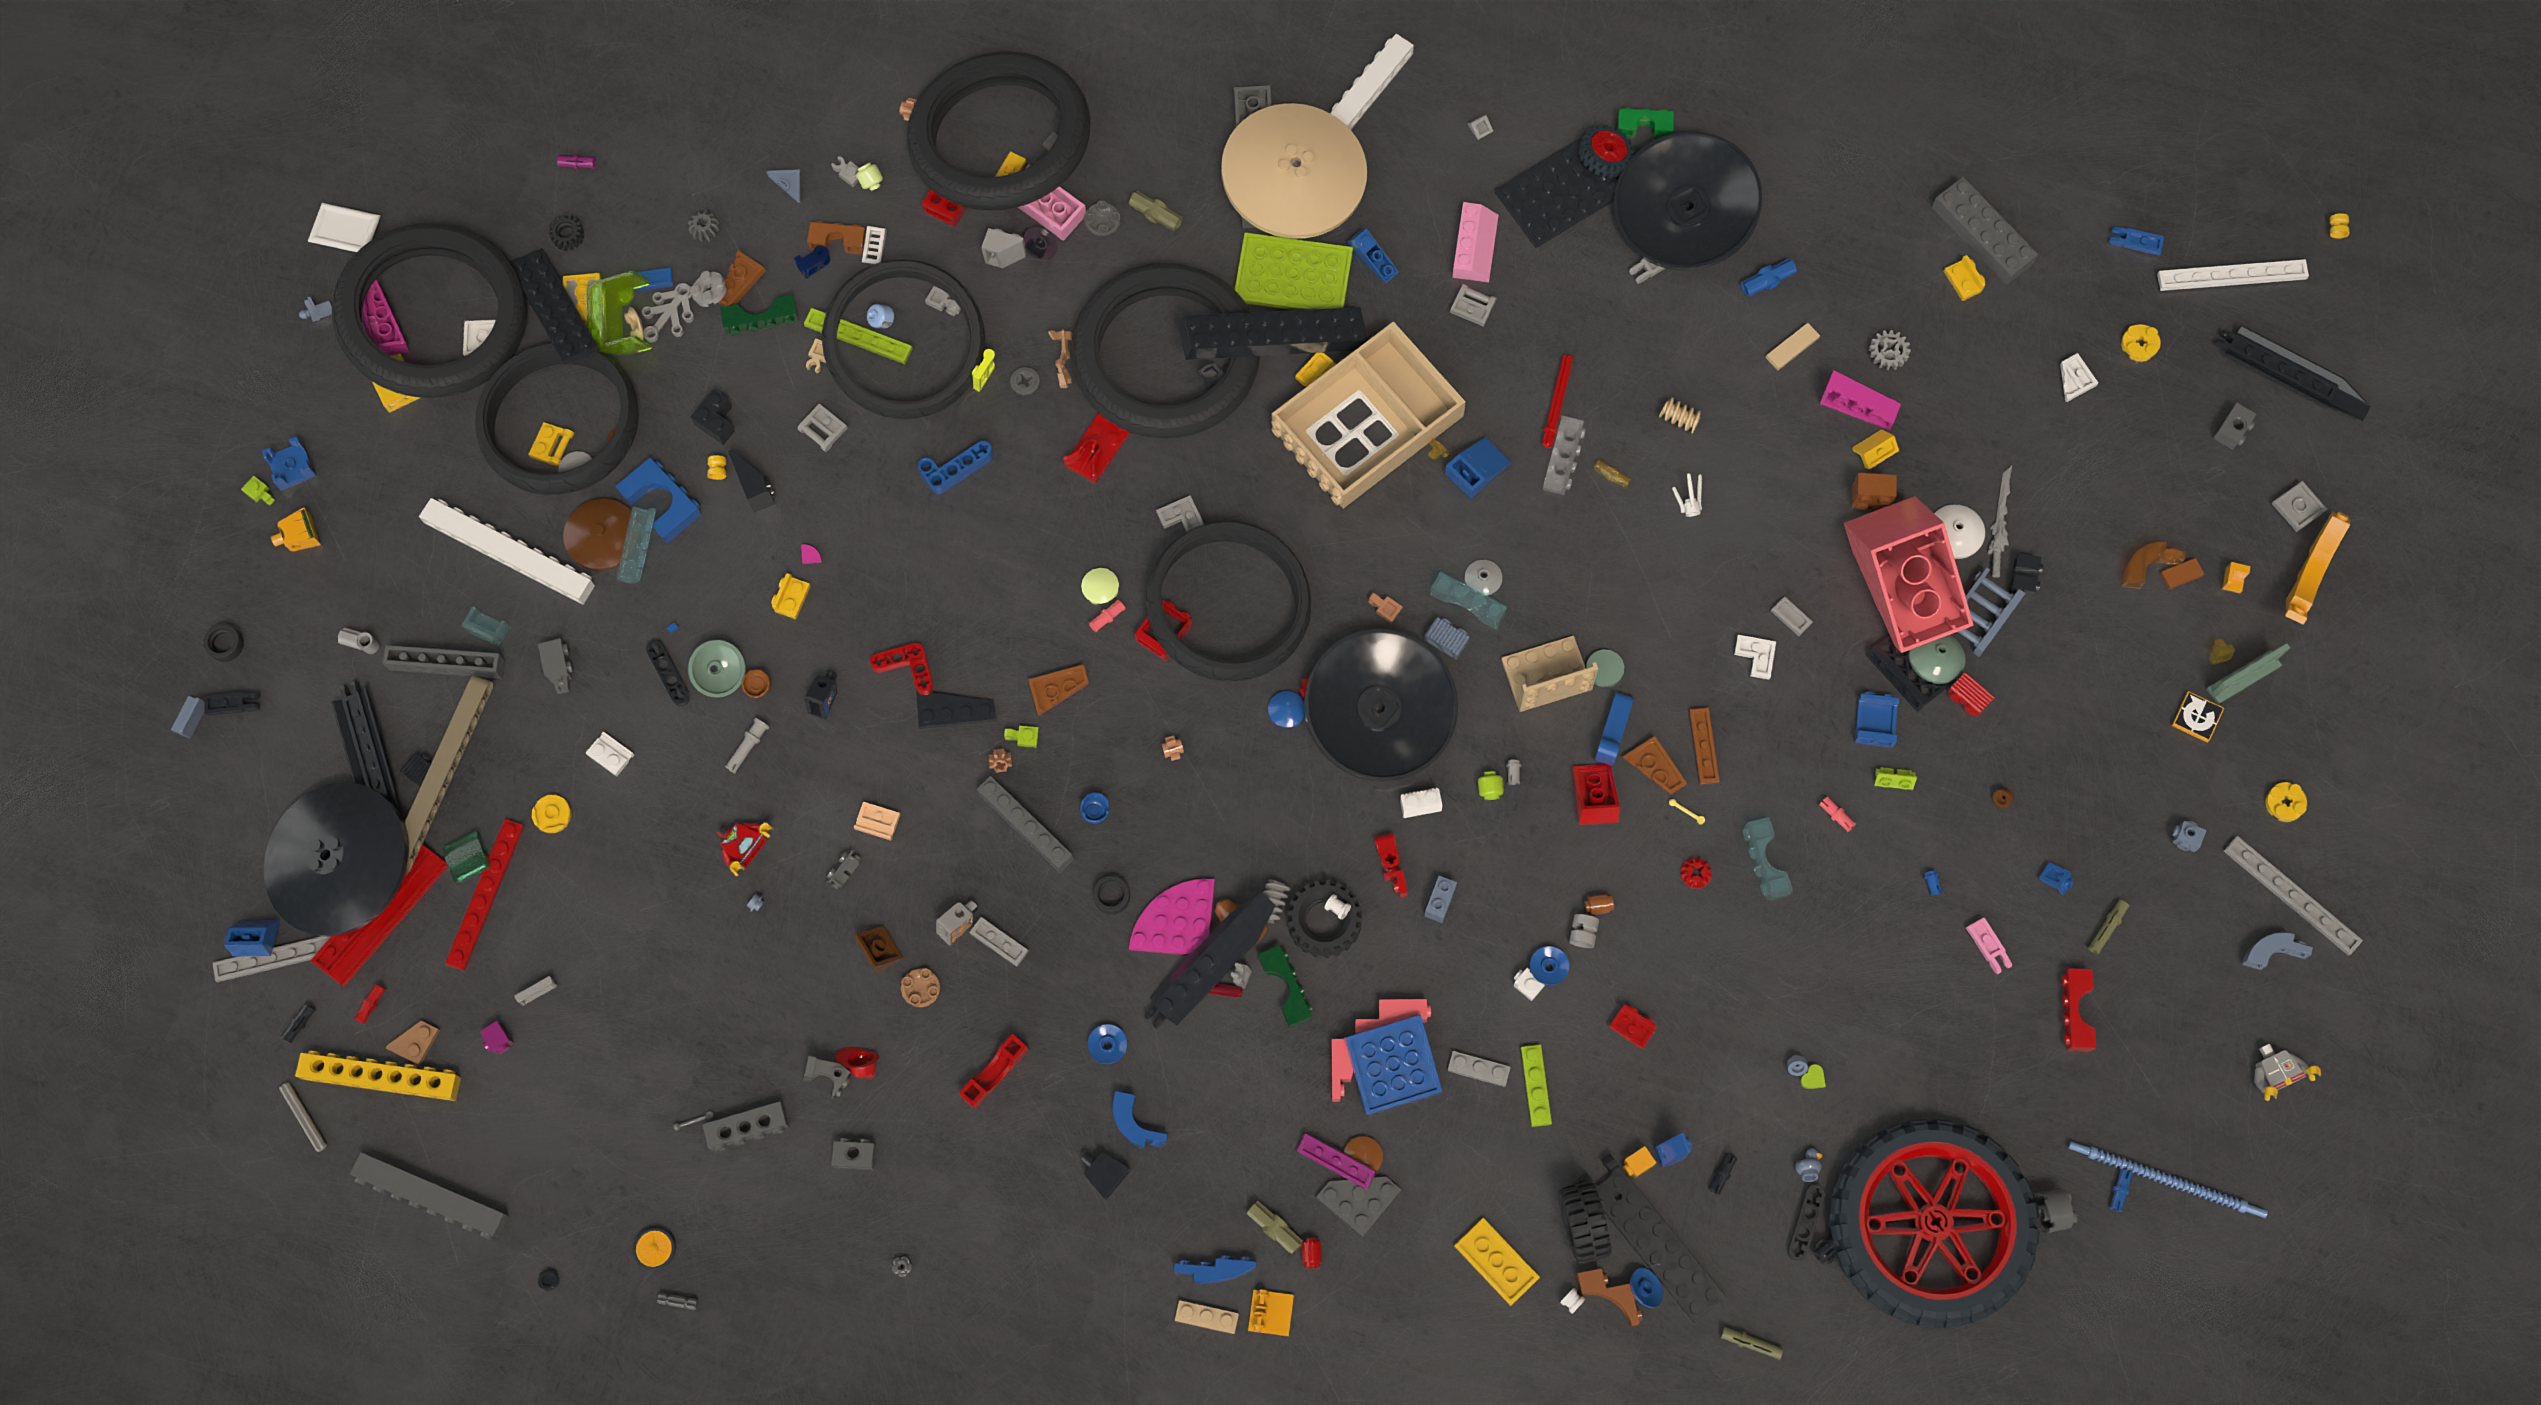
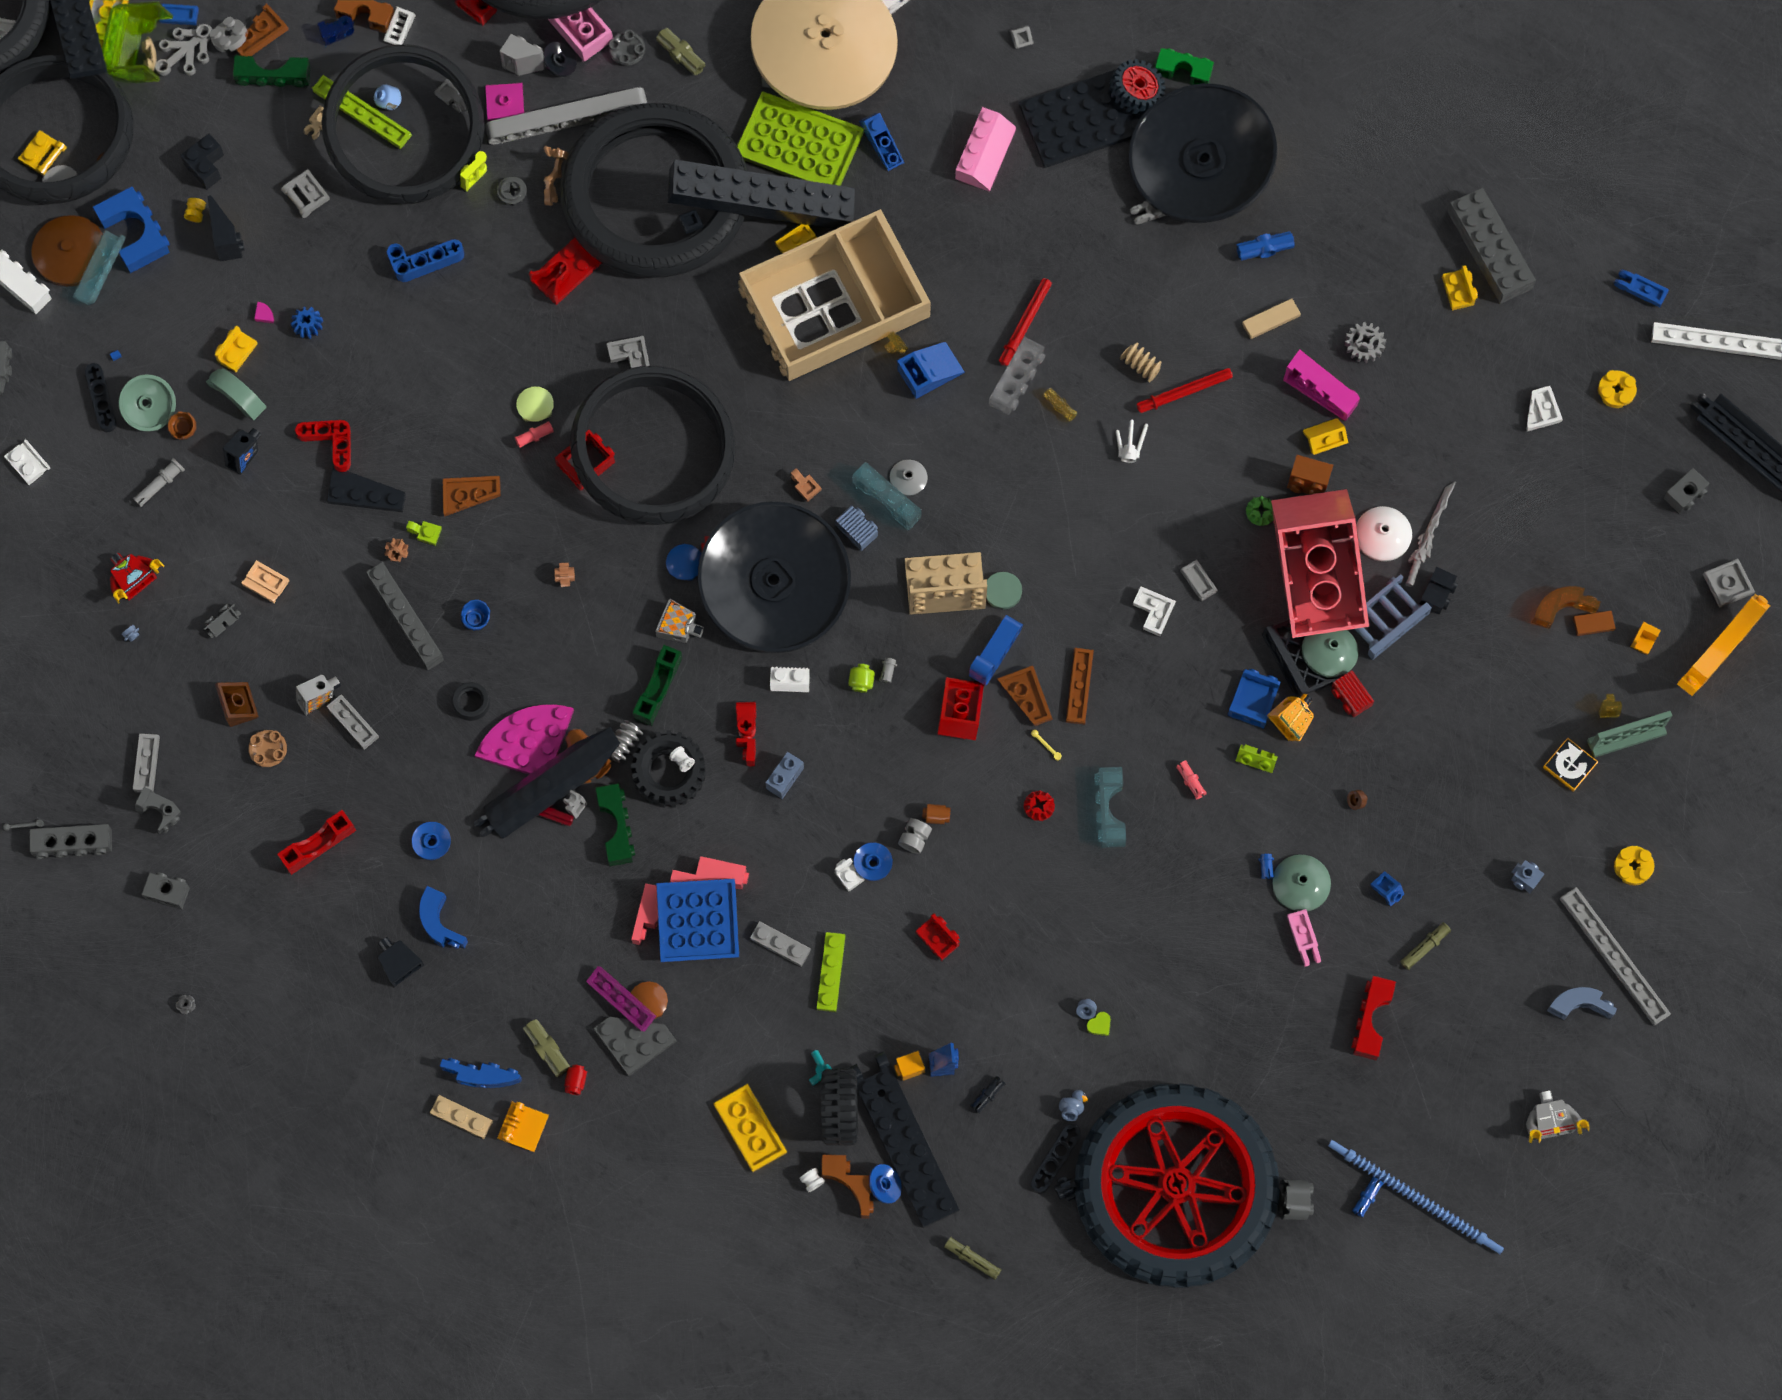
camera: 10 degrees right, 0 degrees up
(802, 1029) = (146, 762): none -> light grey plate
(803, 638) = (237, 392): none -> sand green arch
(855, 548) = (300, 325): none -> blue gear
(859, 1061) = (192, 804): red piece -> none
(996, 296) = (504, 100): none -> dark pink plate
(1055, 298) = (561, 116): none -> light grey beam
(1293, 838) = (662, 677): none -> dark green arch
(1296, 772) = (678, 623): none -> torso
(1470, 309) = (964, 214): light grey plate -> none
(1552, 1186) = (819, 1068): none -> teal piece
(1703, 451) = (1184, 390): none -> red axle
(1829, 541) = (1255, 516): none -> bright green gear
(1920, 730) = (1292, 716): none -> light orange torso
(1962, 900) = (1294, 893): none -> sand green dish

